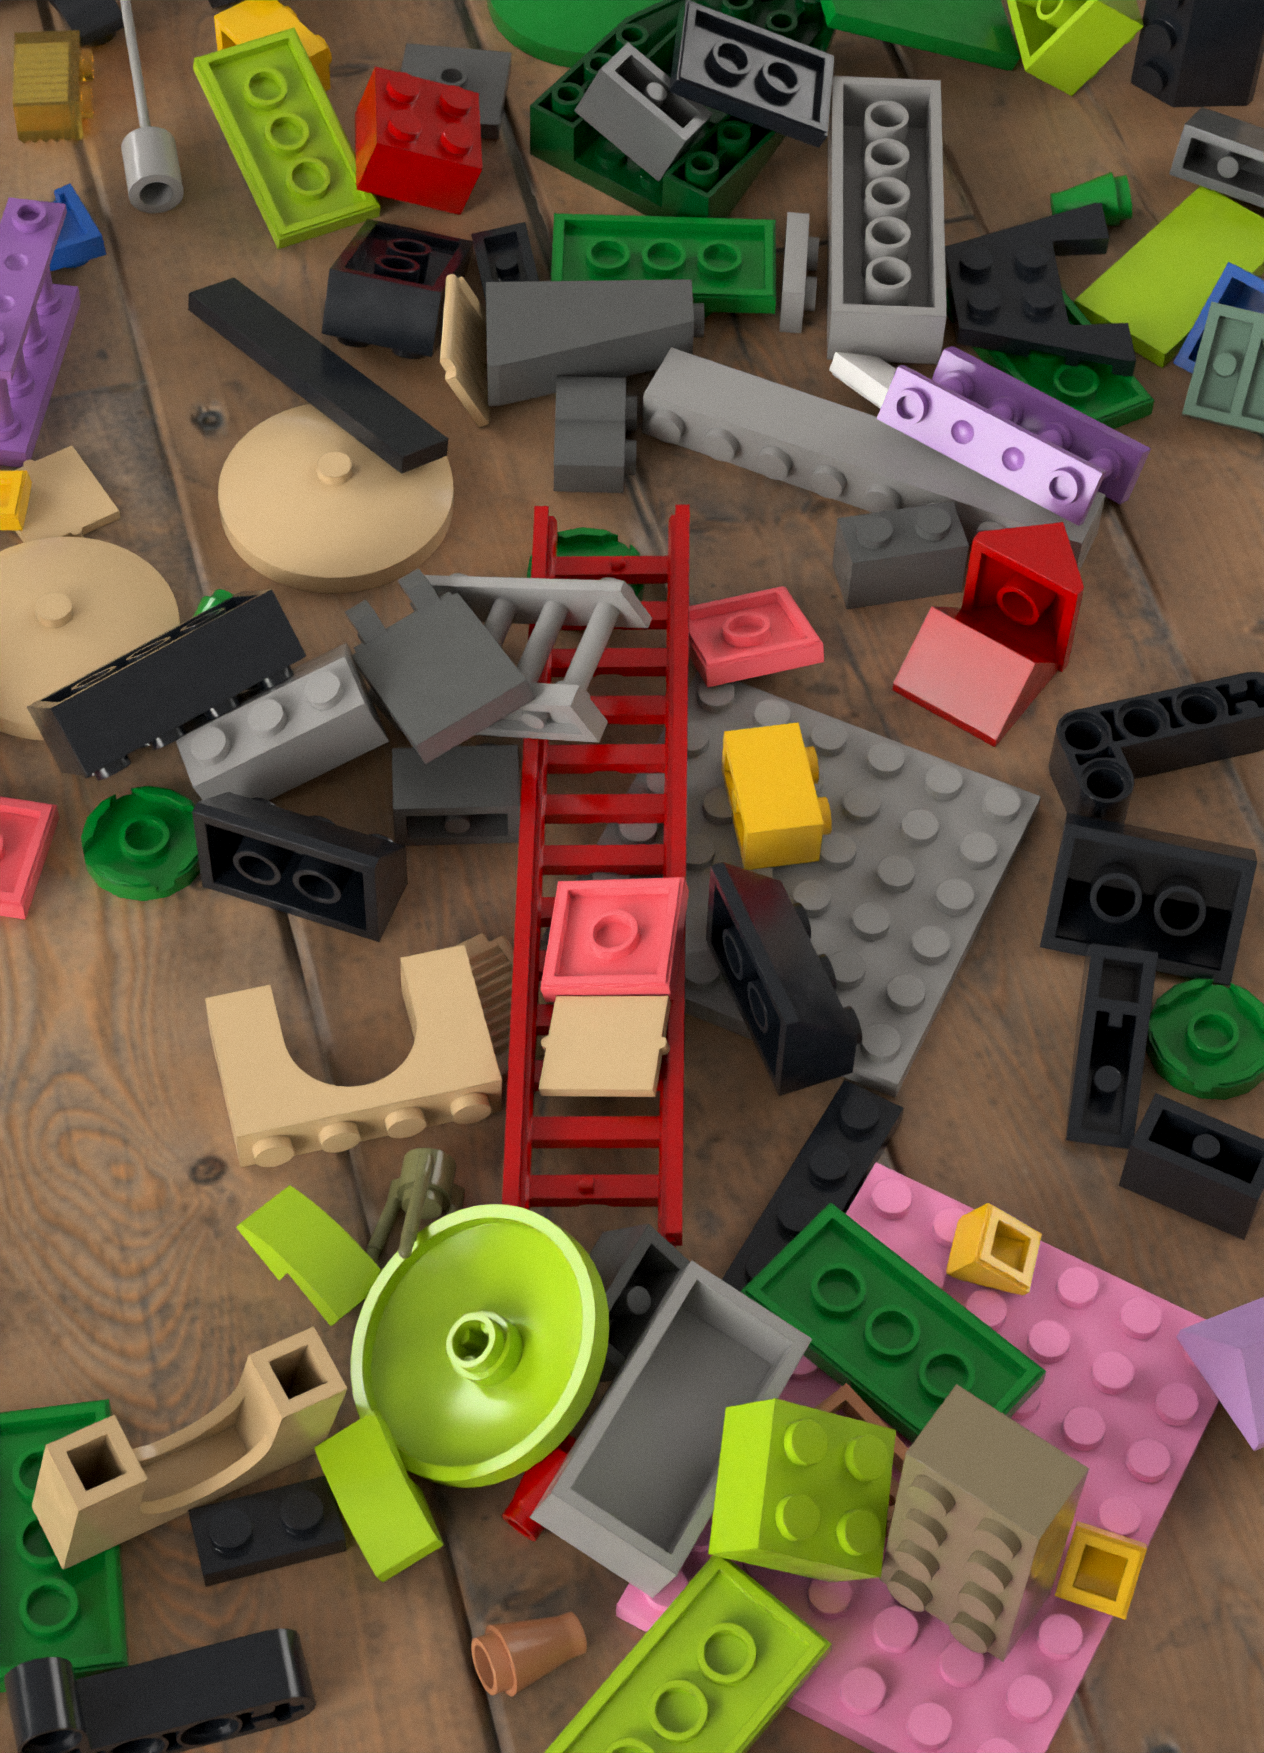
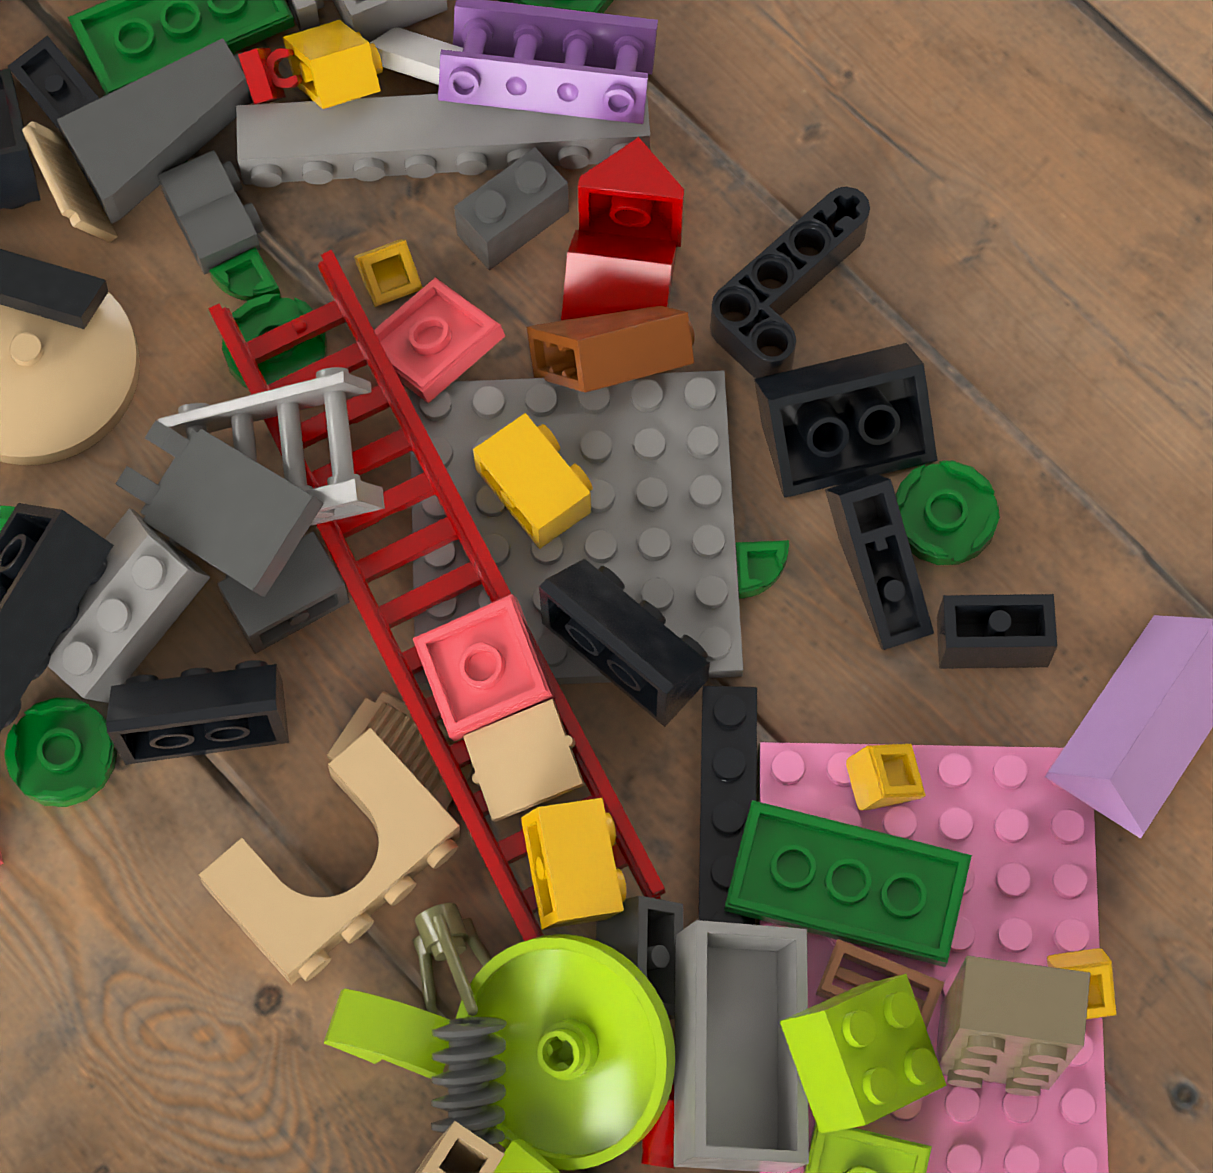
camera: 25 degrees left, 15 degrees up
(367, 1314) = (471, 1076): none -> dark grey piece
(592, 506) = (245, 276): none -> green tile
(597, 1158) = (573, 863): none -> yellow brick
(714, 329) = (263, 74): none -> red tile
(740, 563) = (388, 272): none -> yellow slope
(791, 349) = (334, 63): none -> yellow brick
(933, 716) = (611, 347): none -> dark orange slope
(975, 998) = (759, 565): none -> green tile

